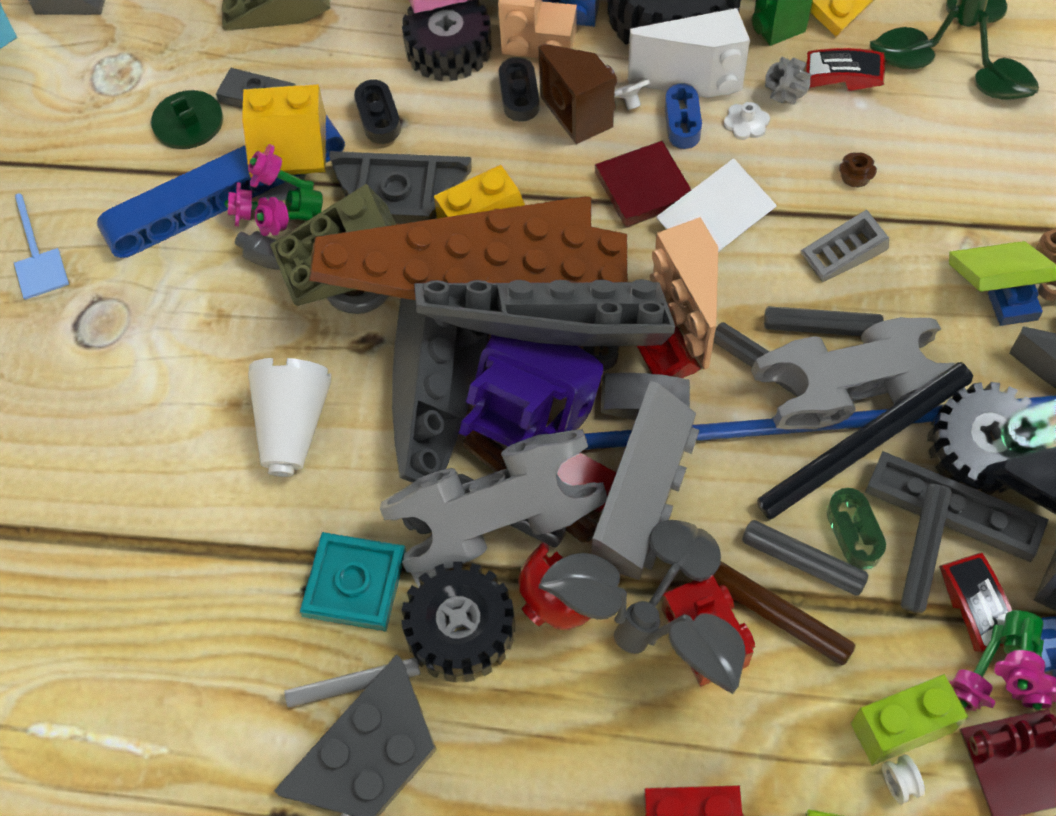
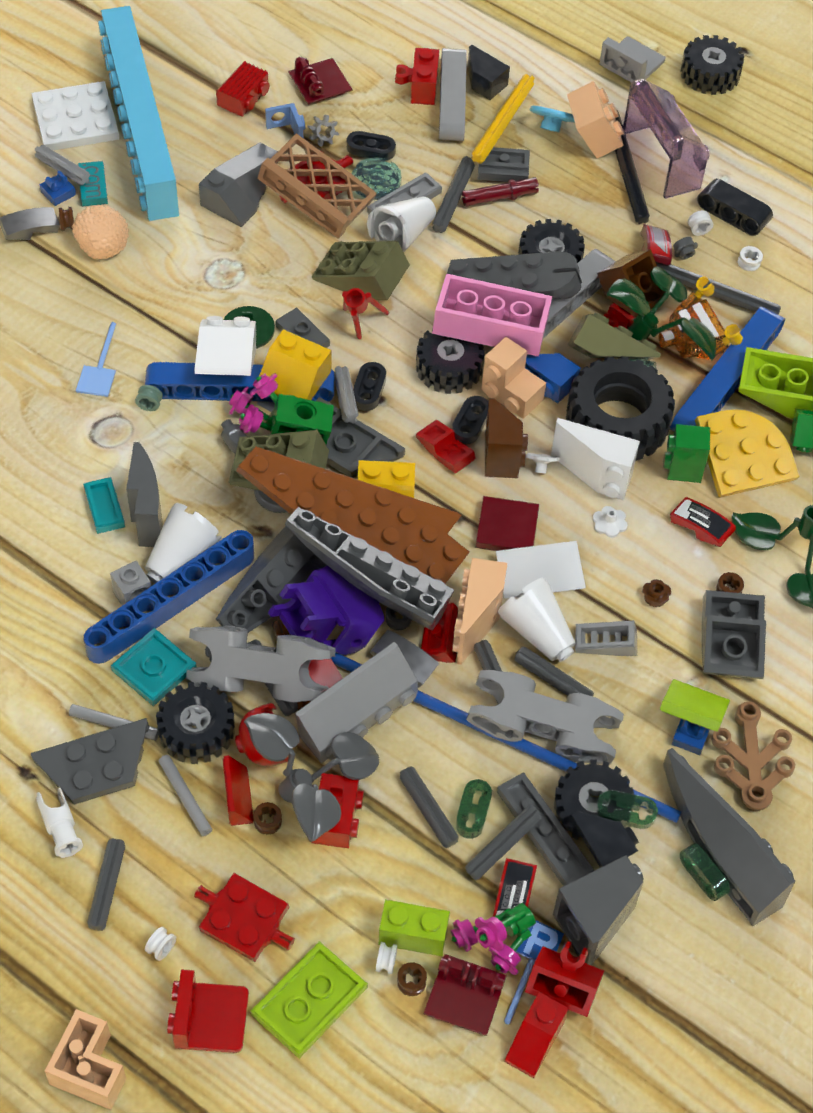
camera: 25 degrees right, 5 degrees down
(123, 258) = (148, 398): none -> sand green bush
(153, 416) = (104, 505): none -> teal tile
(182, 147) = (226, 346): none -> white slope
(206, 377) = (144, 497): none -> dark grey slope
(260, 497) = (129, 582): none -> light grey brick
(304, 22) = (356, 303): none -> red plant
(318, 498) = (163, 607): none -> blue beam
(328, 179) = (300, 414): none -> green brick
(360, 133) = (345, 394): none -> light grey axle
(502, 132) = (444, 447): none -> red slope
(508, 722) = (185, 795): none -> light grey piece
(569, 680) = (237, 792): none -> red slope
(644, 688) = (272, 809): none -> reddish brown bush
(677, 116) = (562, 493): blue beam -> none
(769, 266) = (539, 620): none -> white cone
(785, 615) = (388, 828): reddish brown axle -> none
(788, 80) = (653, 508): light grey gear -> none
(864, 440) = (515, 758): black axle -> none
(925, 130) = (730, 578): none -> reddish brown bush
(957, 796) = (410, 988): none -> reddish brown bush
(973, 168) = (733, 634): none -> dark grey slope

